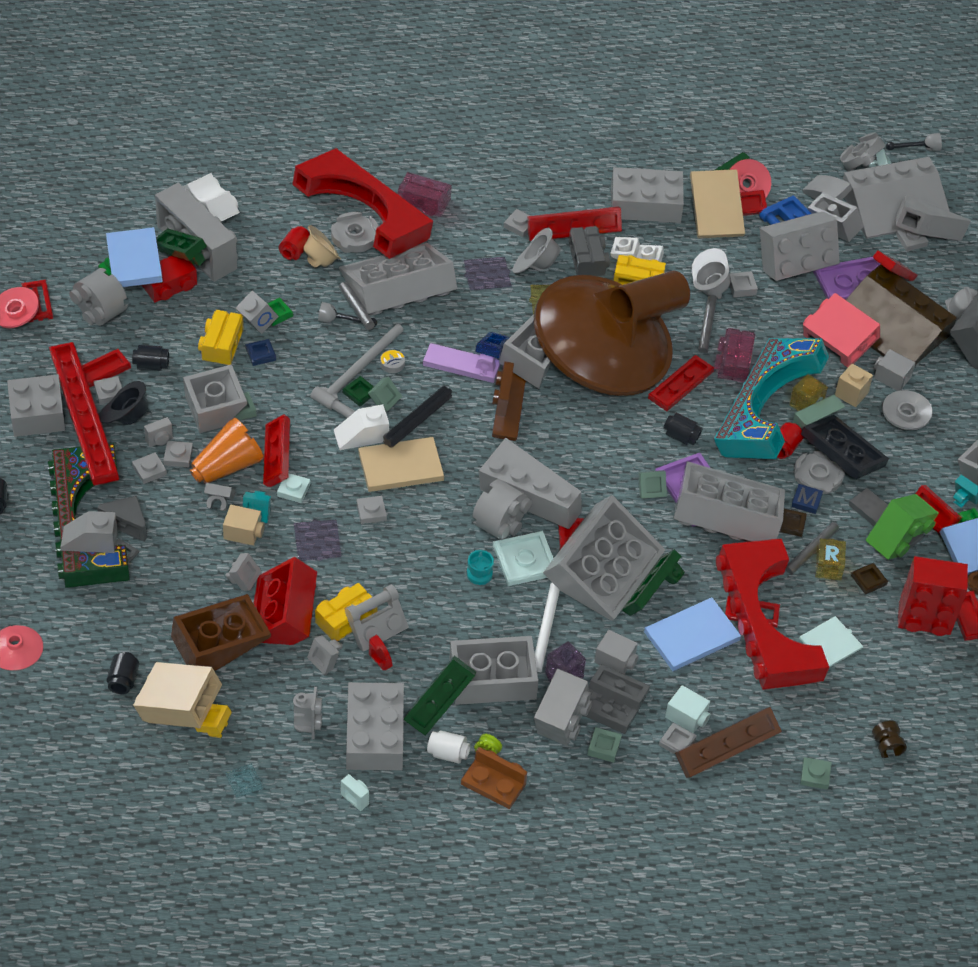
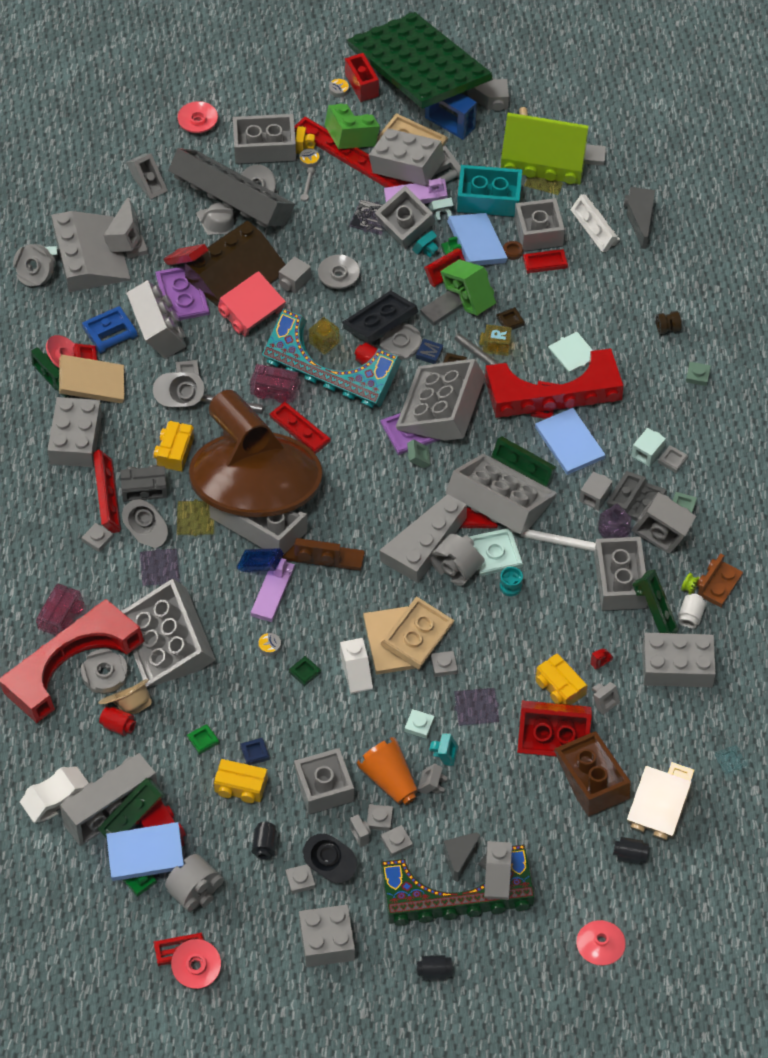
camera: 85 degrees left, 5 degrees up
(83, 414) = (341, 890): red tile -> none
(105, 367) = (271, 885): red tile -> none
(243, 525) = (468, 760): tan brick -> none
(244, 572) = (519, 758): light grey tile -> none
(256, 312) = (215, 748): light grey brick -> none
(276, 451) = (370, 734): red tile -> none
(307, 712) = (674, 702): light grey hinge -> none
(328, 313) = (210, 691): light grey hinge -> none
(328, 396) = (310, 697): light grey bar -> none
(355, 792) = (741, 675): light aqua plate -> none
(356, 305) = (203, 669): flat silver bar -> none
(384, 622) = (569, 648): light grey plate -> none
(385, 393) = (314, 648): sand green plate -> none
(407, 481) = (417, 632): none -> tan tile
(417, 416) = (340, 622): black axle -> none
(631, 246) = (141, 448): white slope -> none
(682, 429) = (357, 428): black brick -> none
(728, 742) = (677, 424): reddish brown plate -> none
(817, 411) = (349, 335): sand green slope -> none
(827, 184) = (77, 295): light grey slope -> none
(847, 215) = (113, 292): light grey slope -> none
(853, 385) = (312, 303): tan brick -> none
(932, 143) = (17, 216): hinge -> none
(932, 596) = (550, 270): red brick -> none

